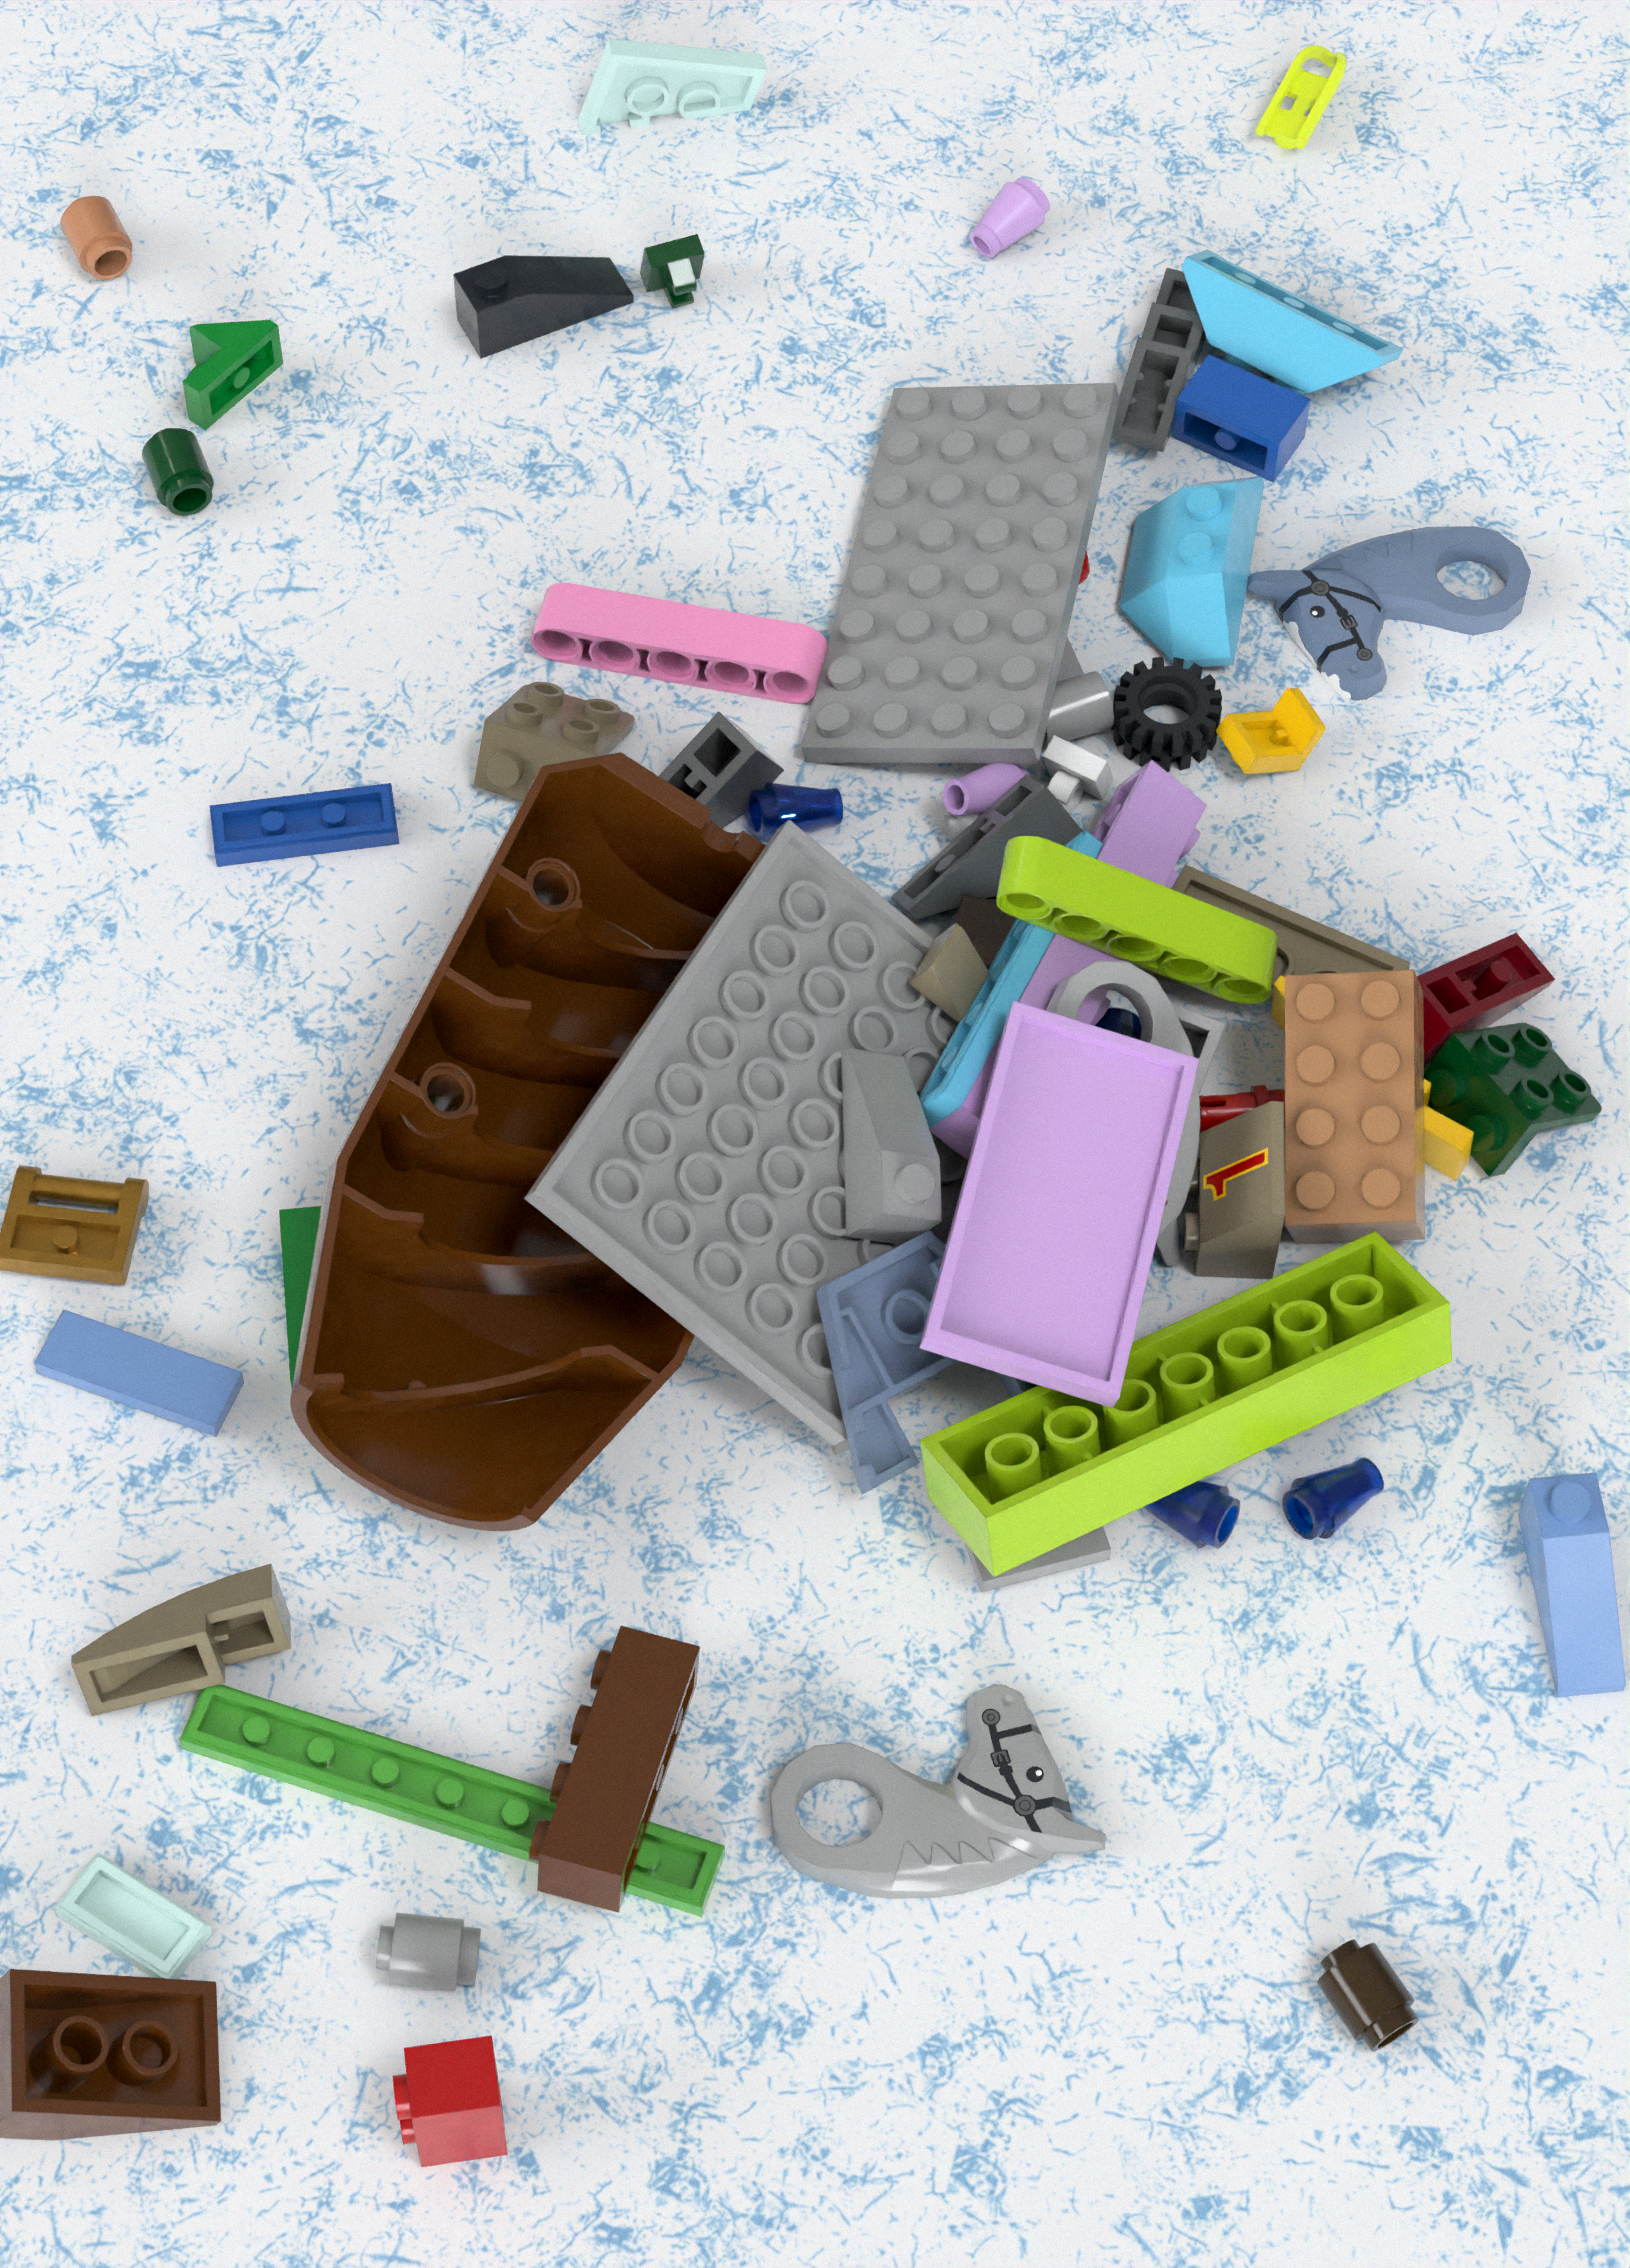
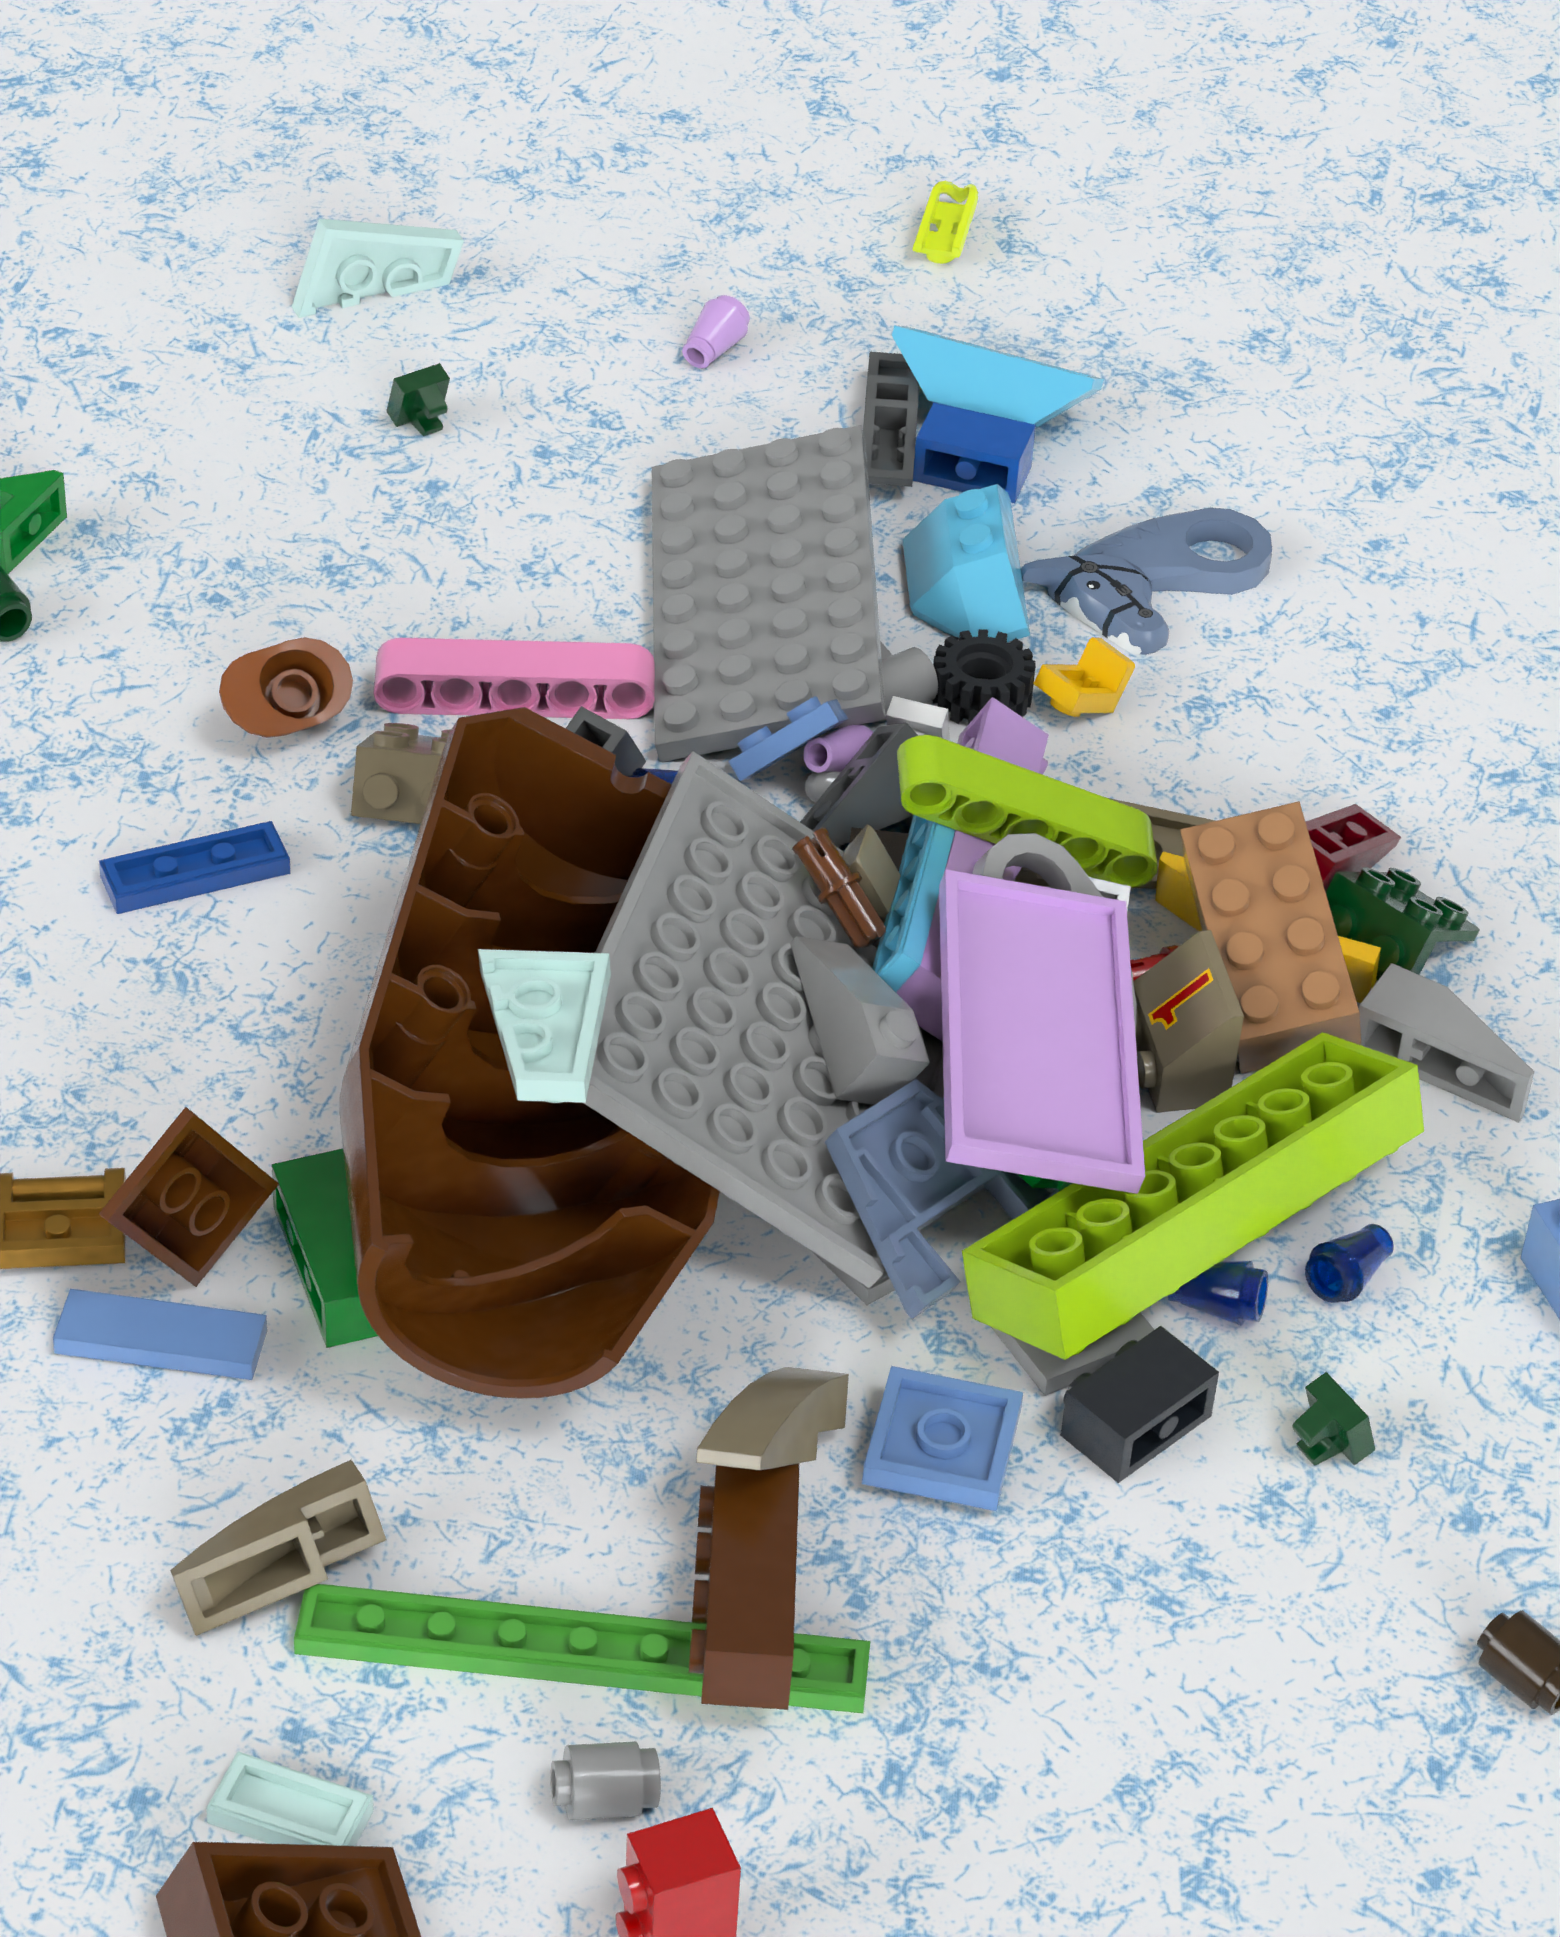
camera: 15 degrees left, 15 degrees down
(183, 1244) = (189, 1197): none -> reddish brown slope
(436, 629) = (286, 687): none -> dark orange piece
(533, 296) = (288, 435): black slope -> none
(537, 1148) = (547, 1018): none -> light aqua wing
(687, 1596) = (777, 1420): none -> dark tan slope
(859, 1630) = (943, 1438): none -> medium blue plate
(910, 996) = (840, 889): none -> reddish brown axle
(936, 1839) = (1113, 1588): light grey animal -> none
(952, 761) = (765, 749): none -> medium blue plate
(1064, 1626) = (1138, 1403): none -> black brick
(1251, 1687) = (1332, 1424): none -> dark green tile
(1501, 1238) = (1447, 1041): none -> light grey slope

